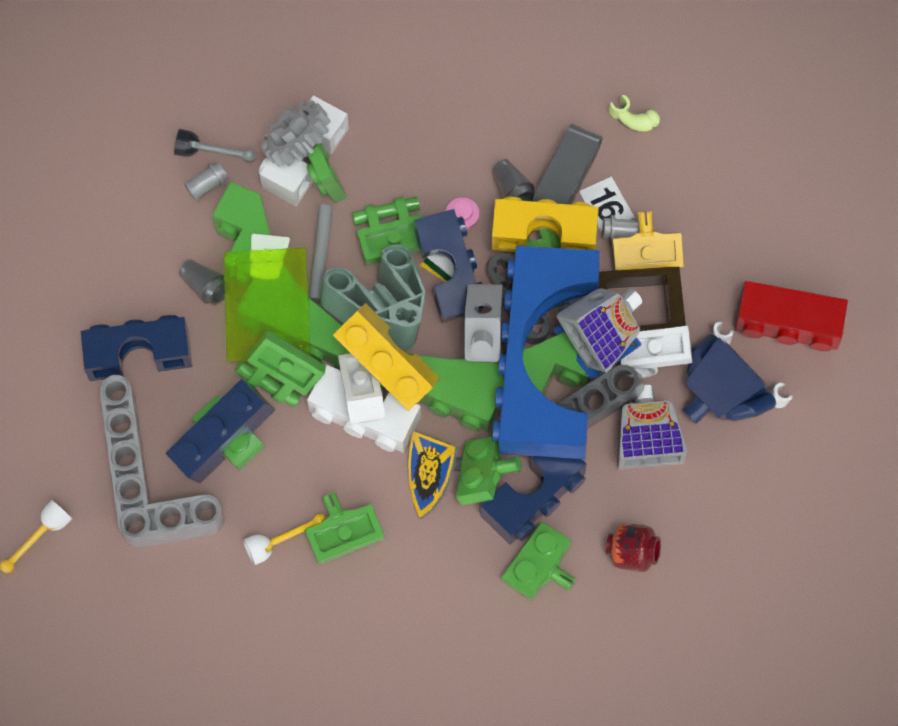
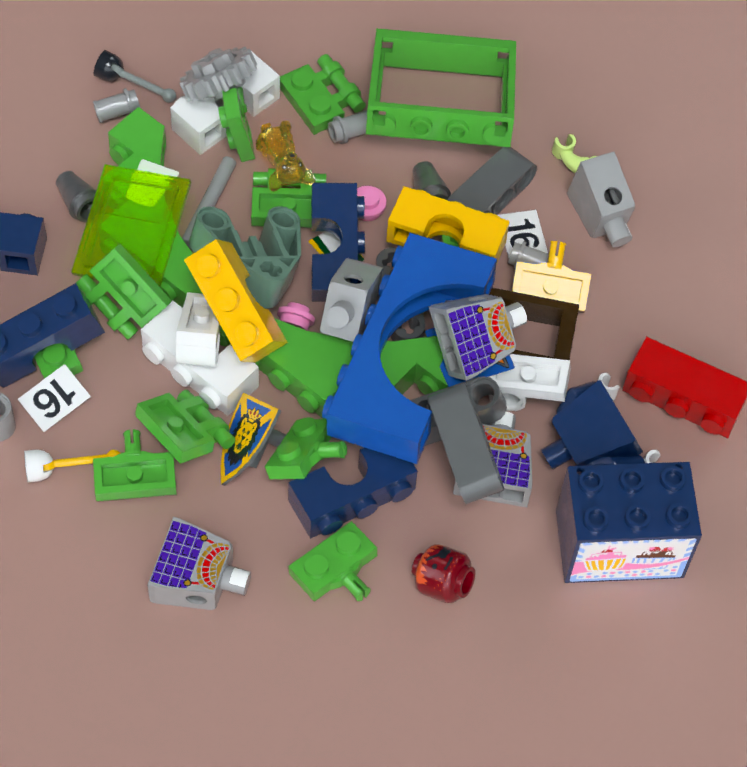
camera: 10 degrees right, 10 degrees down
(249, 481) = (54, 398): none -> white sticker
(367, 482) = (184, 425): none -> bright green plate
(371, 187) = (279, 149): none -> clear yellow animal
(380, 123) = (312, 99): none -> bright green plate
(422, 143) = (348, 127): none -> light grey pin
(425, 603) = (194, 569): none -> torso
(434, 346) = (296, 315): none -> bright pink plate
(491, 44) = (443, 54): none -> bright green window
(622, 430) = (465, 443): none -> dark grey beam
(671, 156) = (603, 198): none -> light grey torso
(776, 460) = (627, 522): none -> dark blue container

